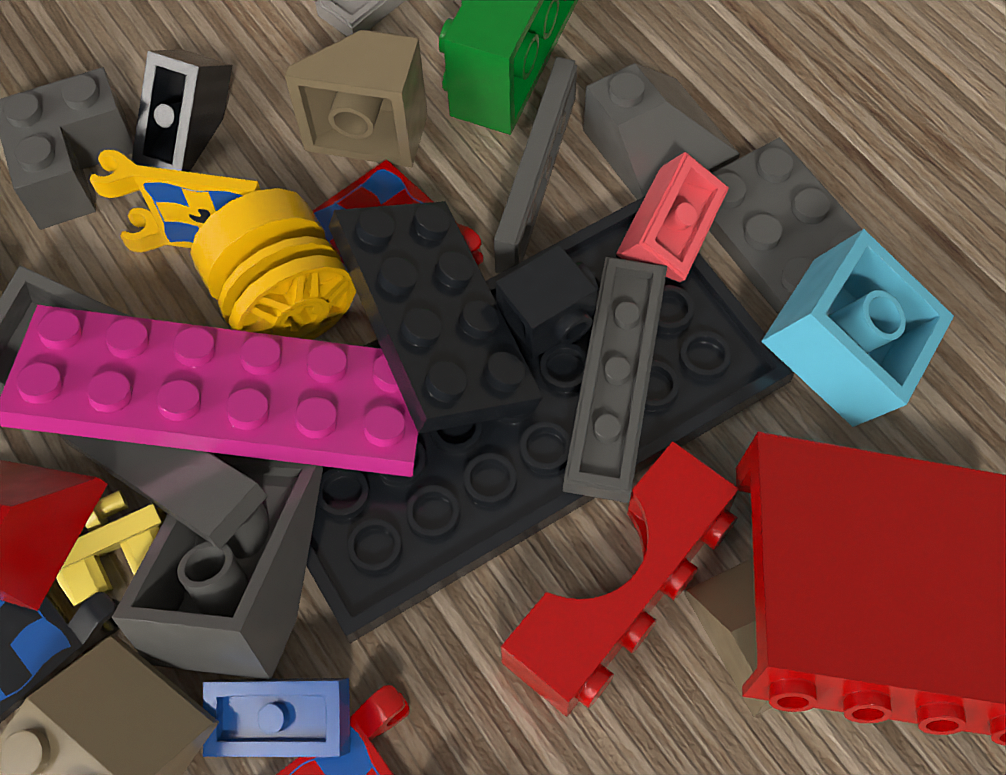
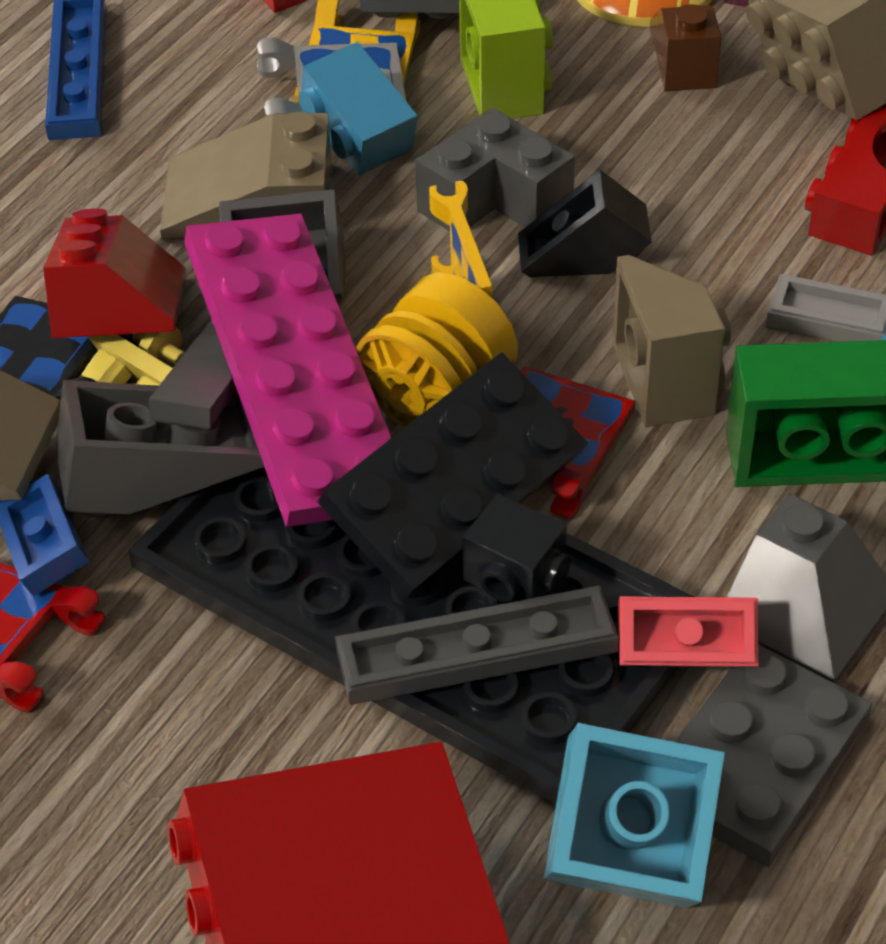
camera: 65 degrees right, 15 degrees down
(536, 166) = (687, 505): dark grey tile -> none
(570, 641) = (190, 717): red arch -> none

